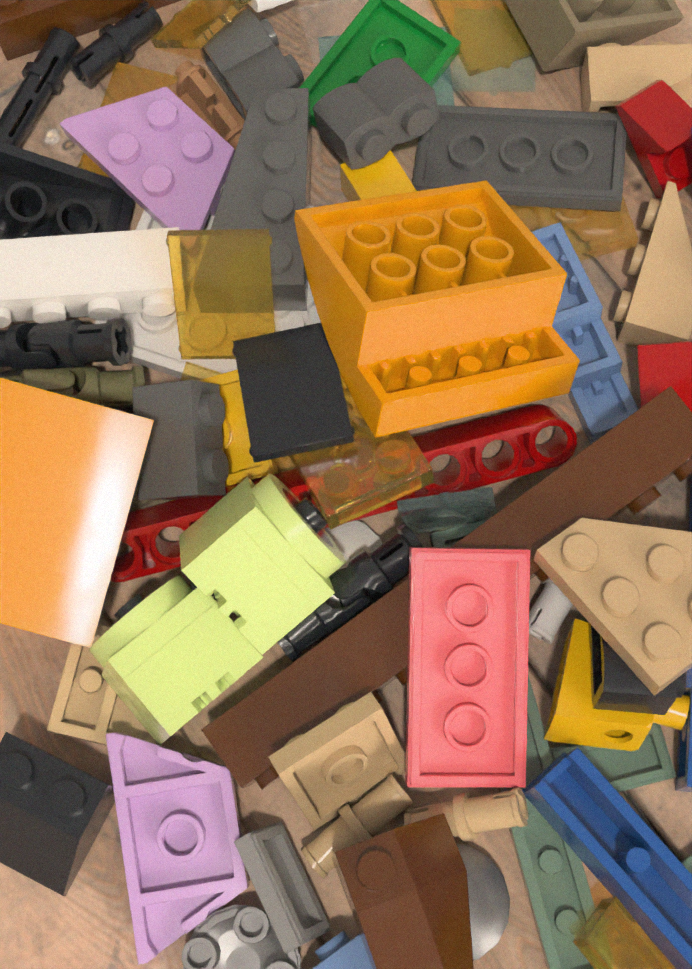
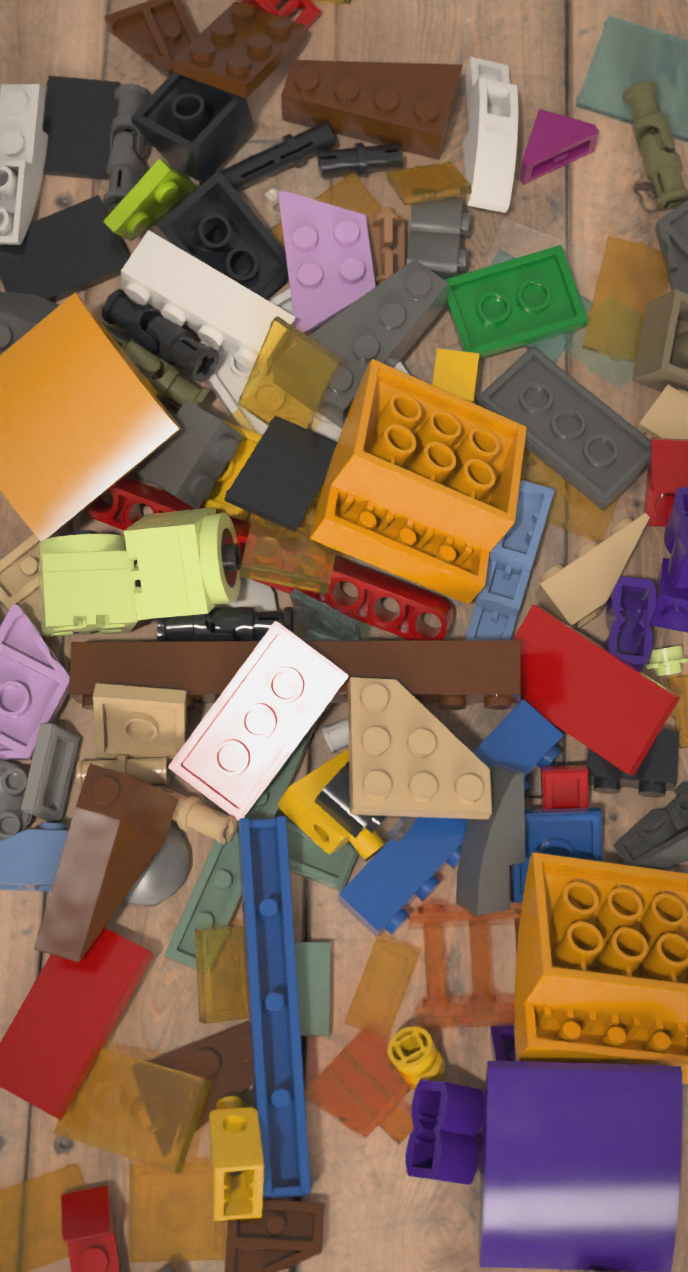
camera: 30 degrees right, 0 degrees up
(376, 113) = (484, 330): dark grey brick -> none

